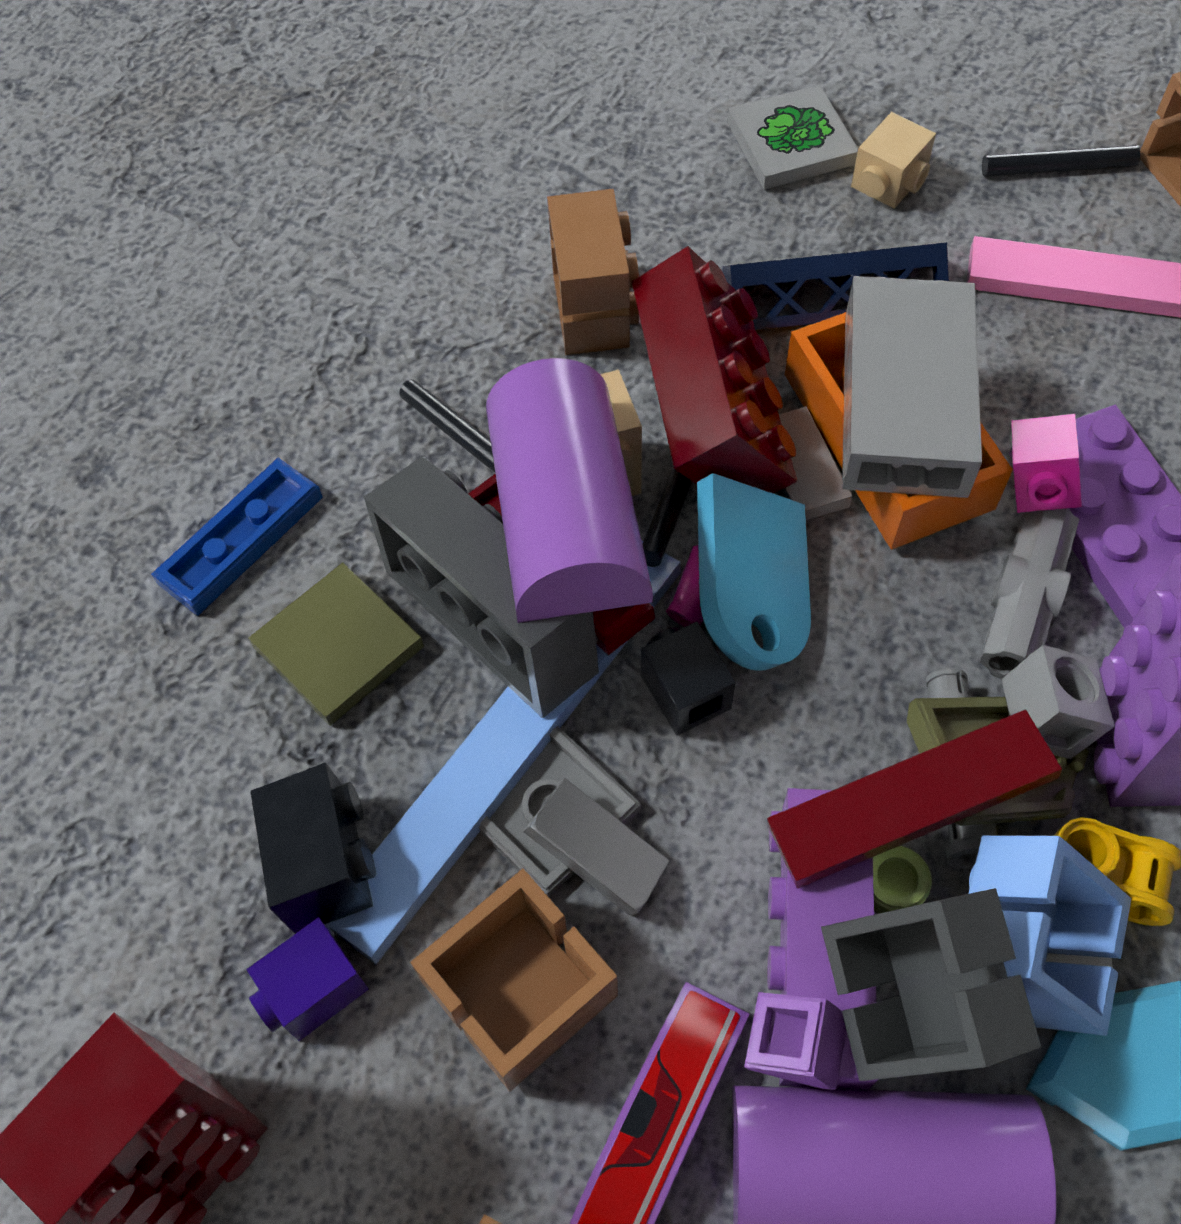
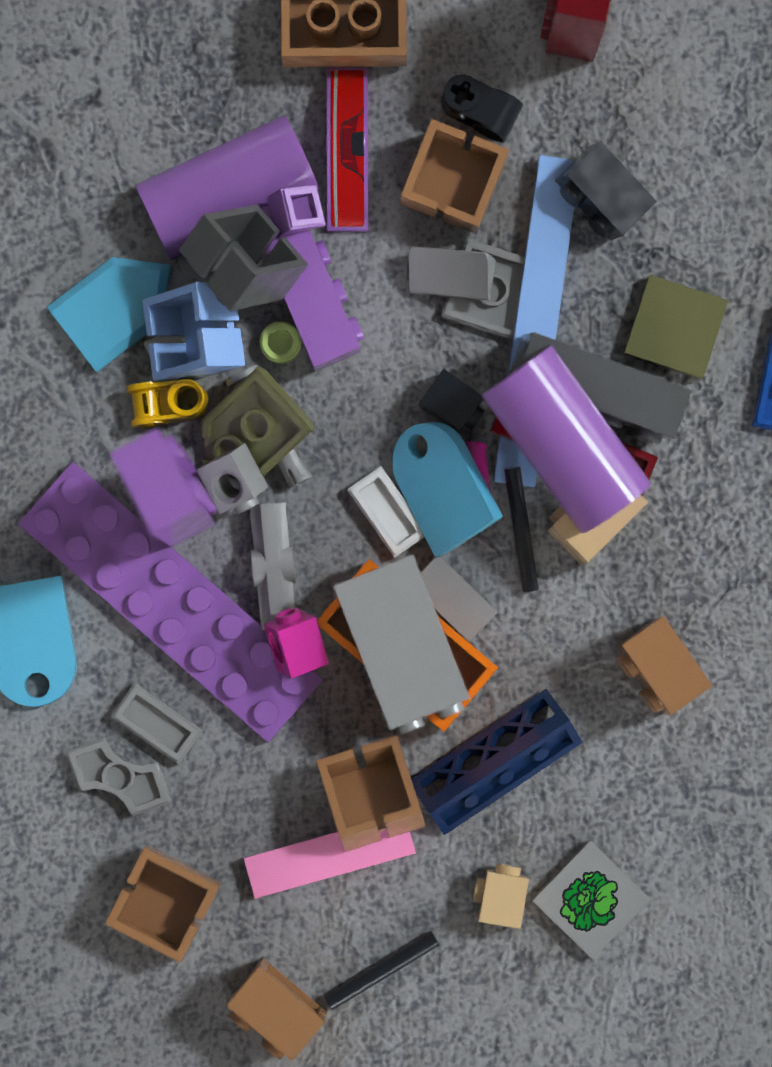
camera: 150 degrees right, 25 degrees up
(304, 982) = (566, 124): dark purple brick -> none
(409, 1073) = (485, 108): none -> black piece
(448, 421) = (695, 513): black bar -> none
(712, 375) = (533, 610): dark red brick -> none
(842, 598) = (386, 511): none -> white tile
(913, 798) = (289, 363): dark red tile -> none
(1024, 292) = (371, 797): none -> medium nougat piece

